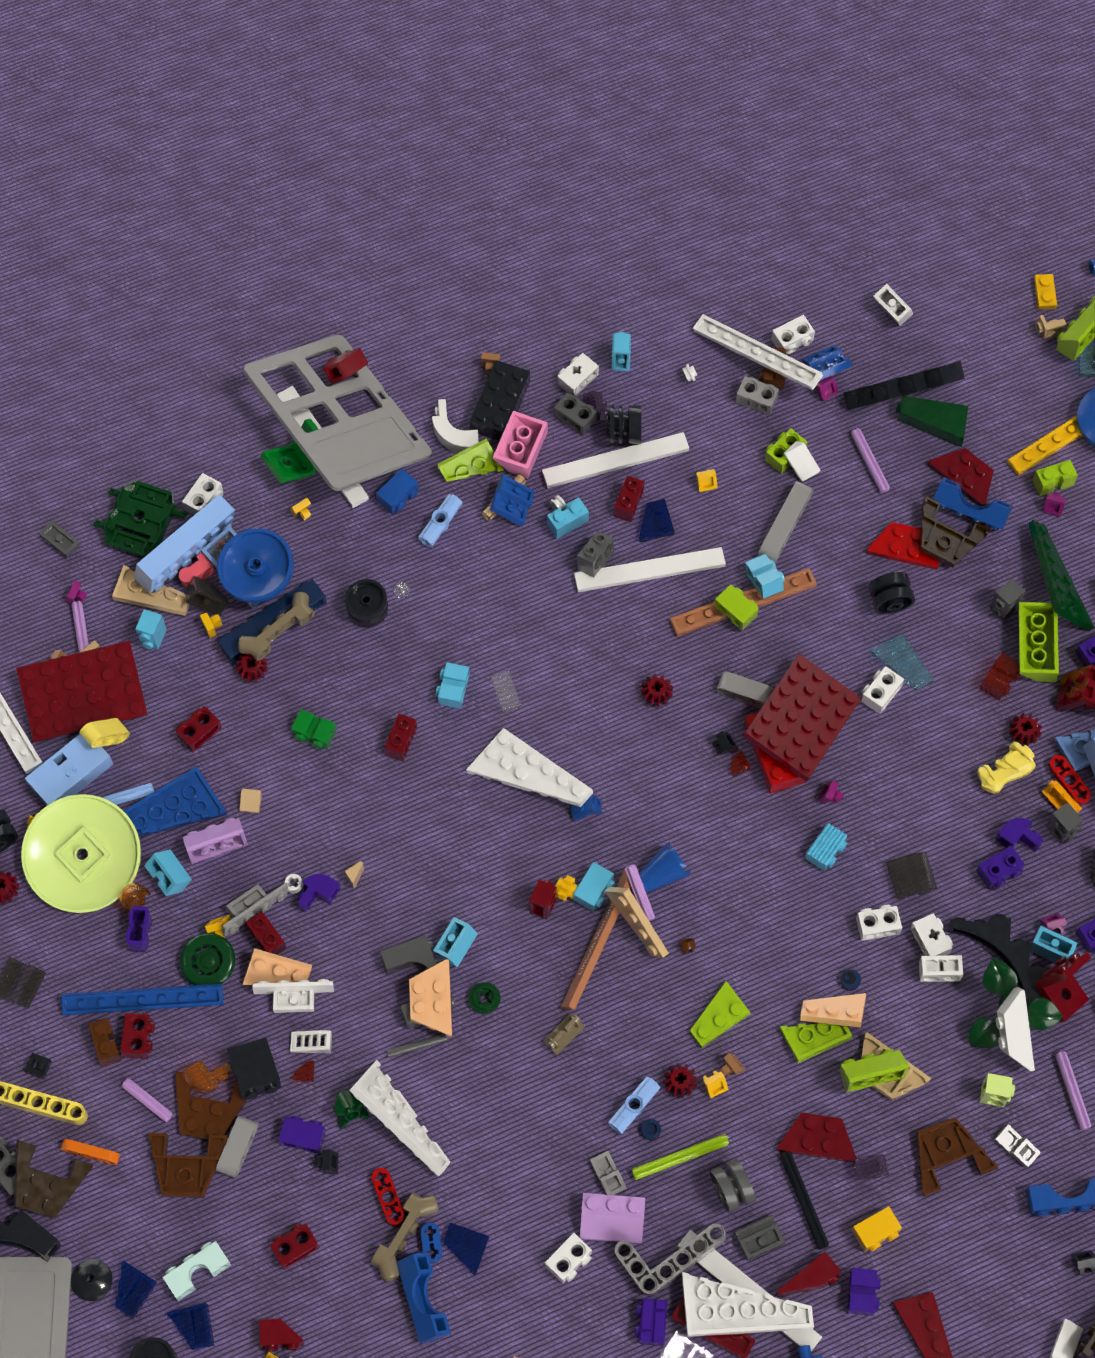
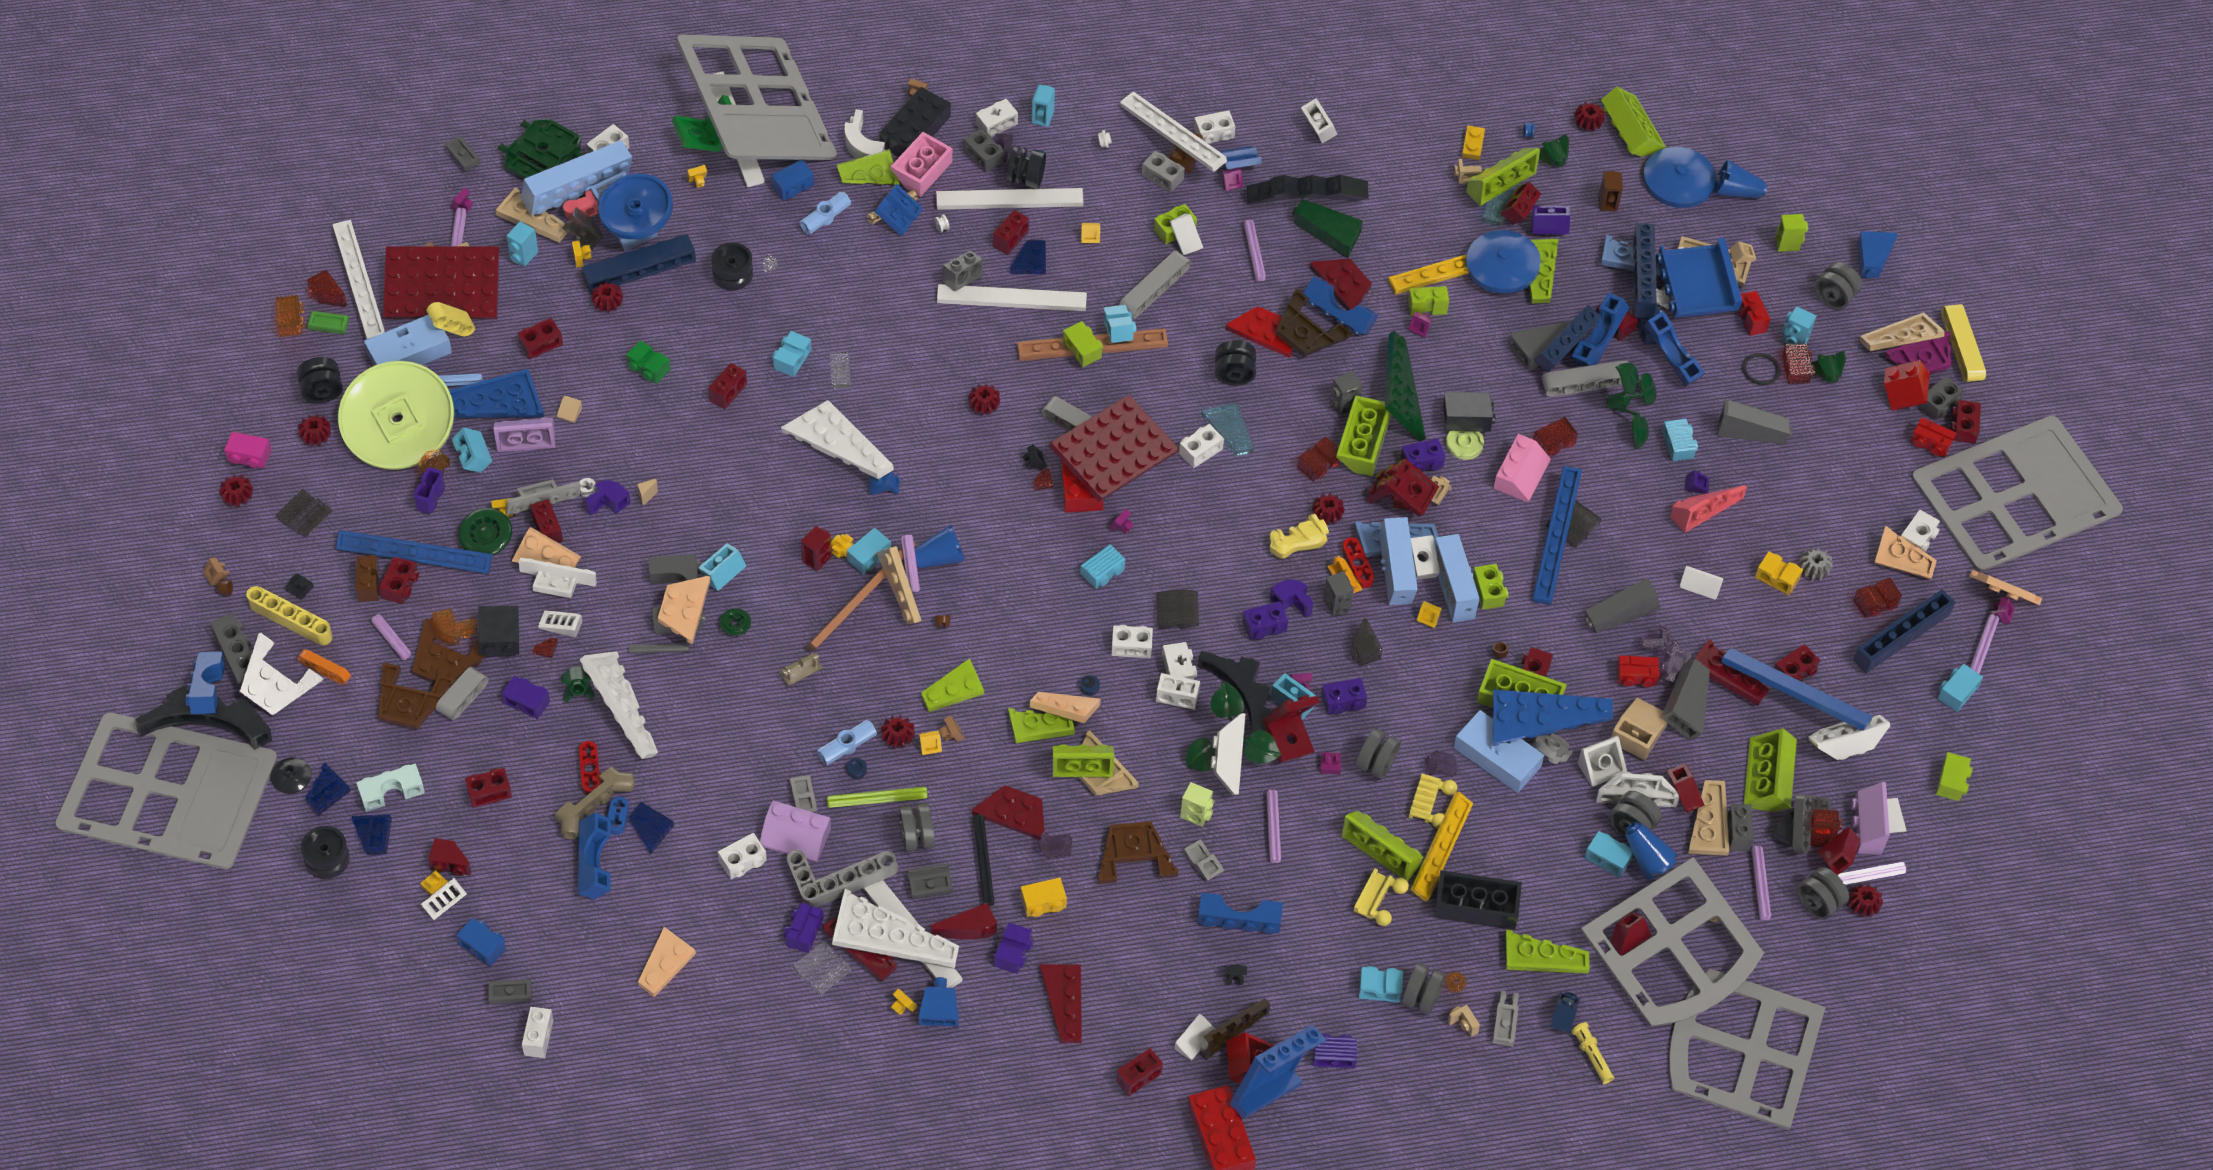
camera: 10 degrees right, 10 degrees down
(260, 645) = (619, 276): dark tan plate -> none
(328, 1161) = (543, 724): black tile -> none
(345, 365) = (777, 61): dark red slope -> none
(565, 521) = (947, 237): medium azure brick -> none

